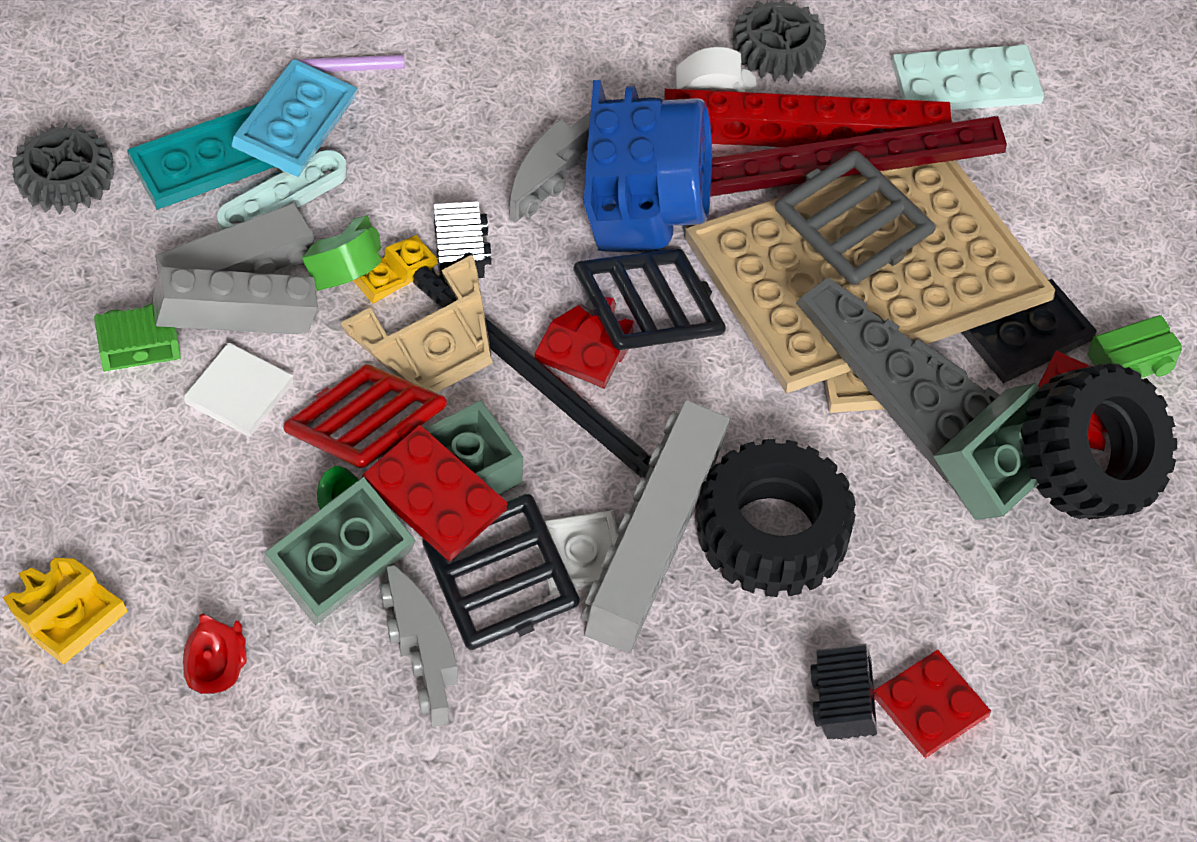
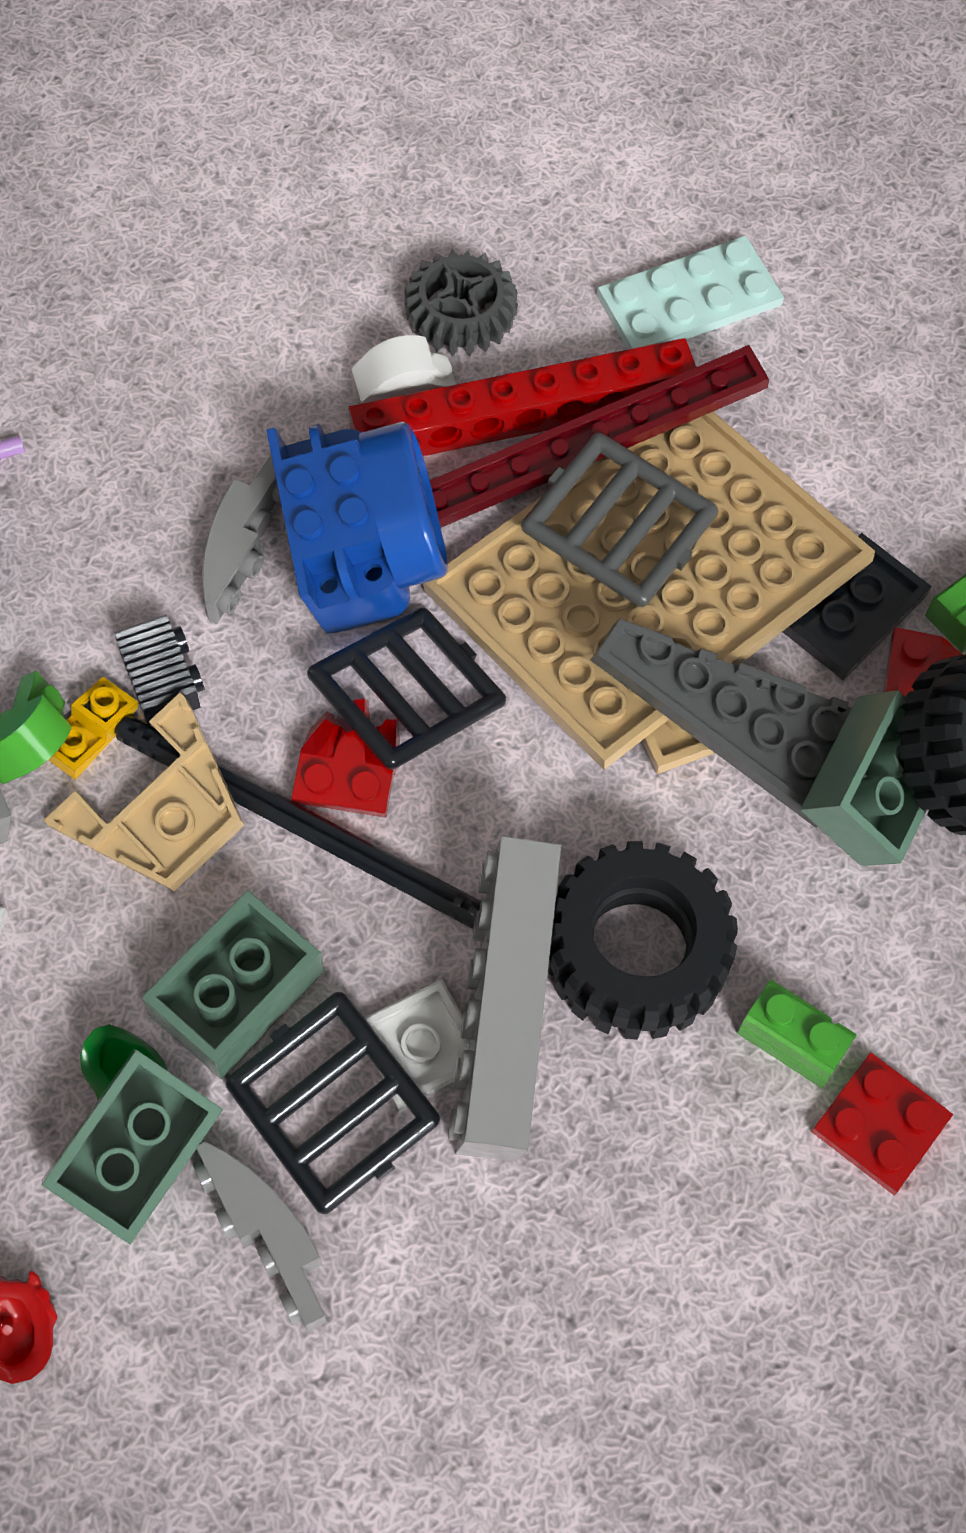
camera: 15 degrees left, 10 degrees up
(344, 446) = (163, 966): red bar -> none
(435, 492) = (227, 1036): red plate -> none
(845, 692) = (783, 1144): black brick -> none
(880, 617) = (796, 1033): none -> bright green brick

